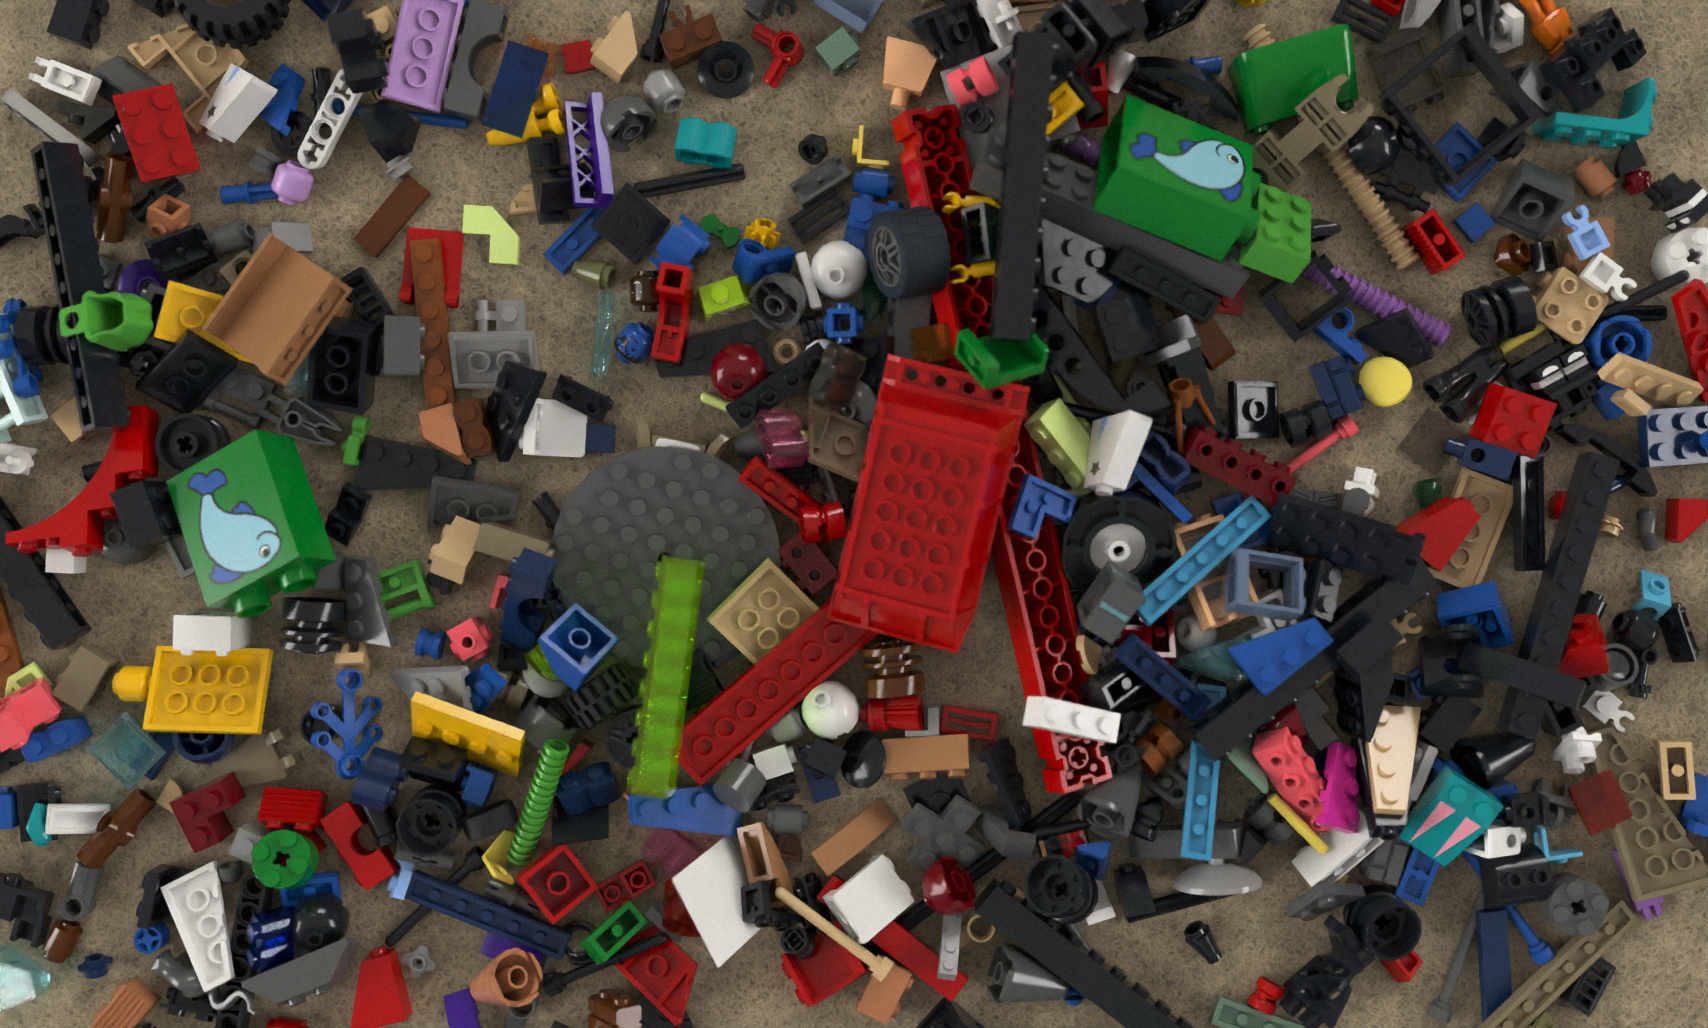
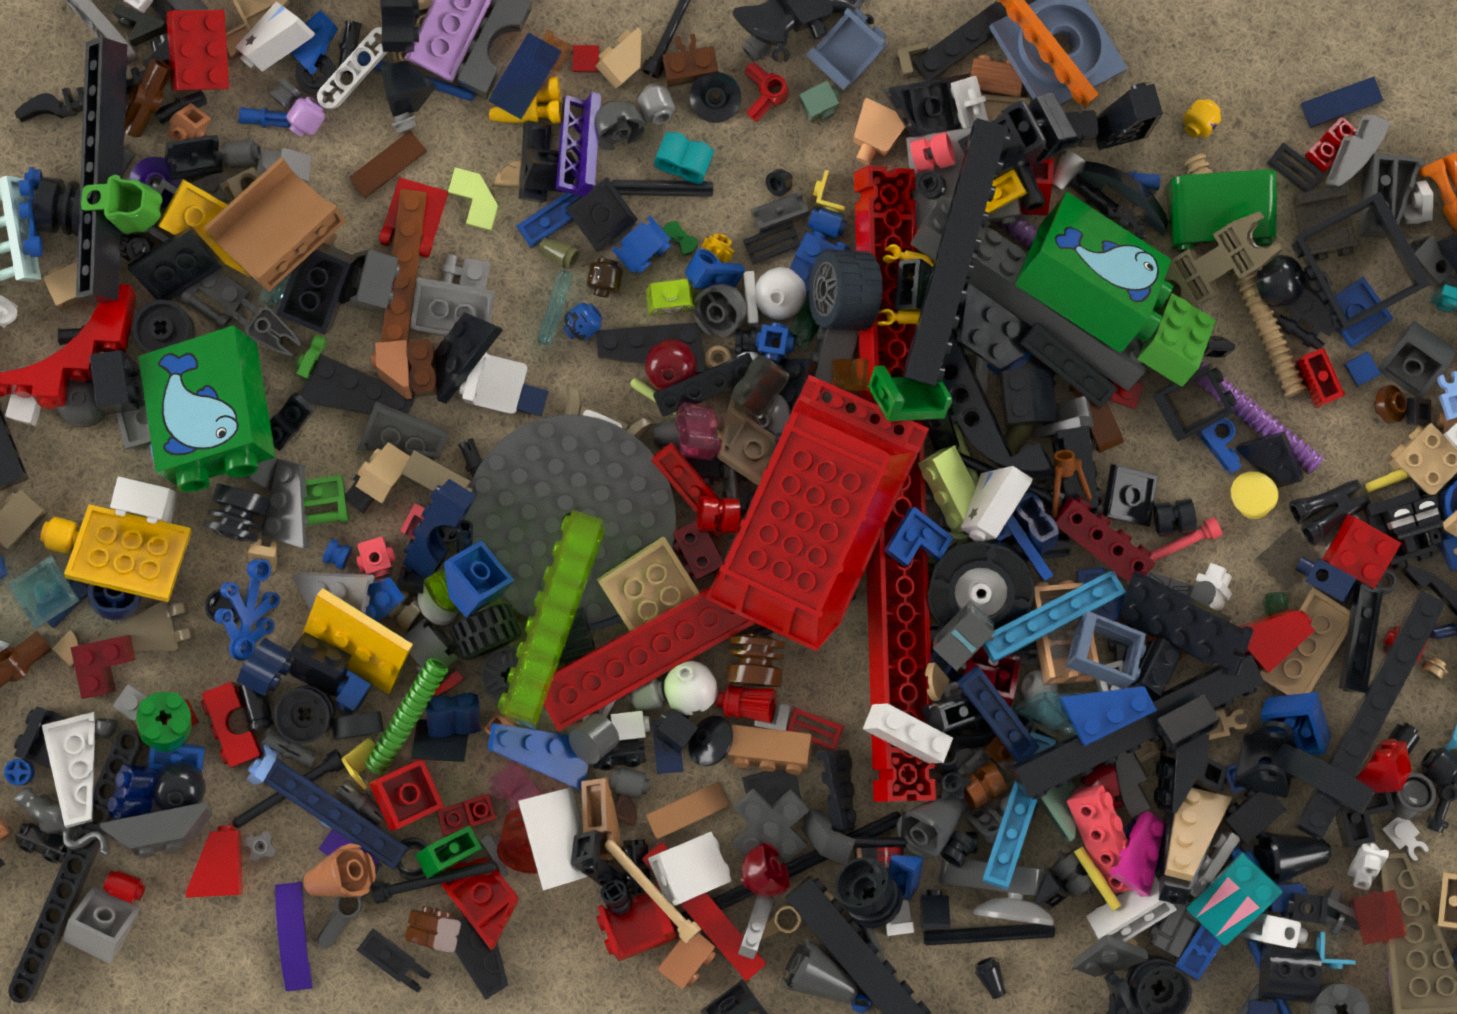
camera: 10 degrees right, 5 degrees down
(292, 808) = (178, 677): red brick -> none
(369, 283) = (349, 209): black slope -> none
(582, 398) = (524, 360): black hinge -> none
(676, 298) = (626, 298): red arch -> none
(1337, 386) = (1209, 489): dark blue brick -> none
(1492, 130) = (1405, 307): black bracket -> none
(1499, 311) = (1366, 451): black wheel -> none

